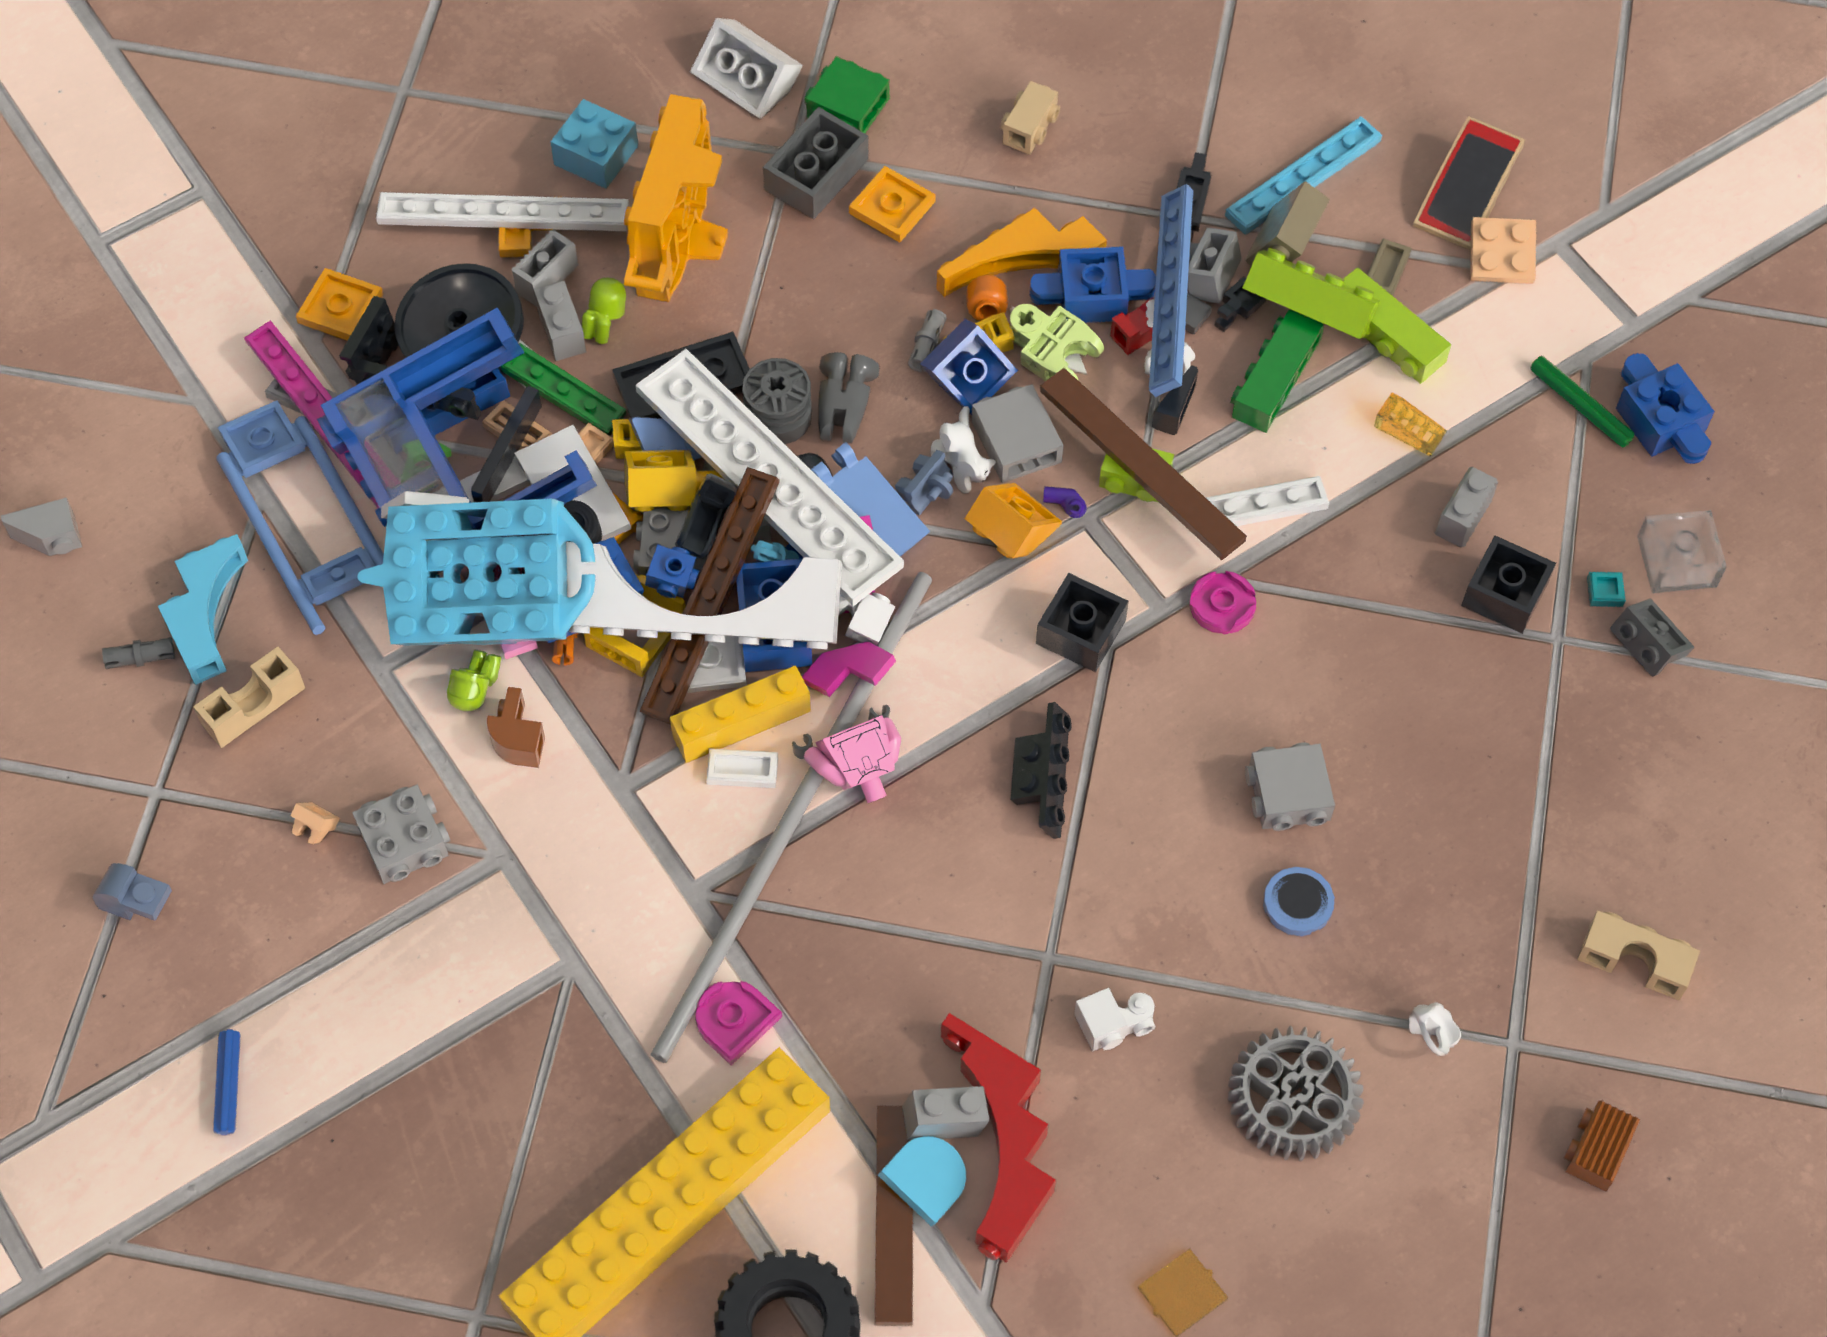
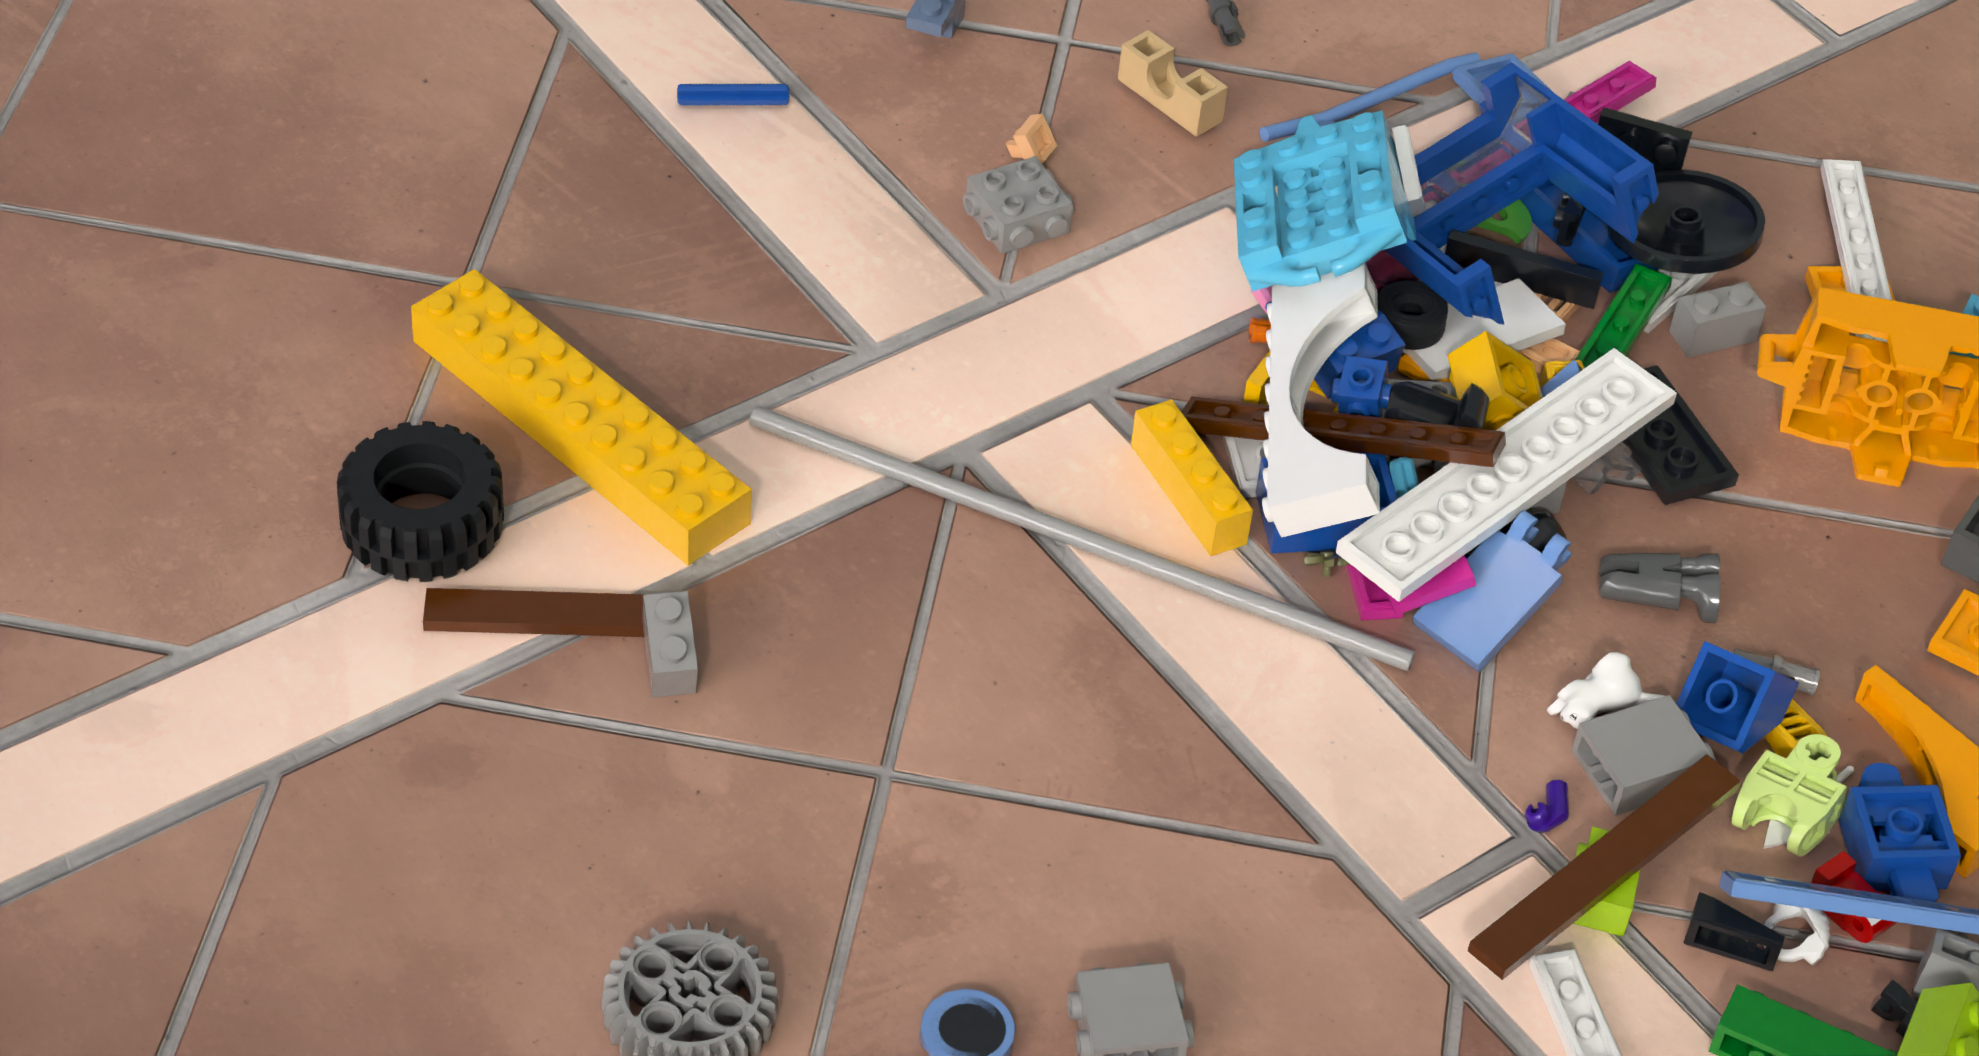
camera: 85 degrees right, 15 degrees down
(193, 614) = (1271, 46): medium azure arch -> none
(336, 303) = (1712, 141): light orange plate -> none
(469, 685) = (1207, 251): lime piece -> none
(513, 738) = (1150, 285): dark orange brick -> none
(544, 265) = (1783, 293): light grey brick -> none
(605, 304) = (1740, 357): lime piece -> none
(734, 1018) = (802, 480): dark pink tile -> none
(742, 768) = (1125, 489): white tile -> none
(779, 397) = (1637, 505): dark grey wheel -> none
(856, 754) = (1145, 580): bright pink torso -> none
(861, 659) = (1273, 580): dark pink tile -> none
(868, 617) = (1335, 591): white brick -> none
(926, 1176) = (596, 634): medium azure tile -> none
(929, 483) = (1547, 658): sand blue hips -> none
(986, 297) = (1854, 727): orange head -> none
(1007, 1084) = (701, 708): red arch -> none
(1011, 519) = (1509, 745): light orange slope -> none
(1041, 770) = (1140, 768): black bracket -> none
(1082, 622) = (1354, 802): black brick -> none
(1108, 1024) = (796, 815): white brick -> none
(1183, 1292) = (439, 882): clear yellow piece -> none
(1196, 313) = (1889, 962): dark grey tile -> none
(1223, 602) = (1418, 978): dark pink tile -> none

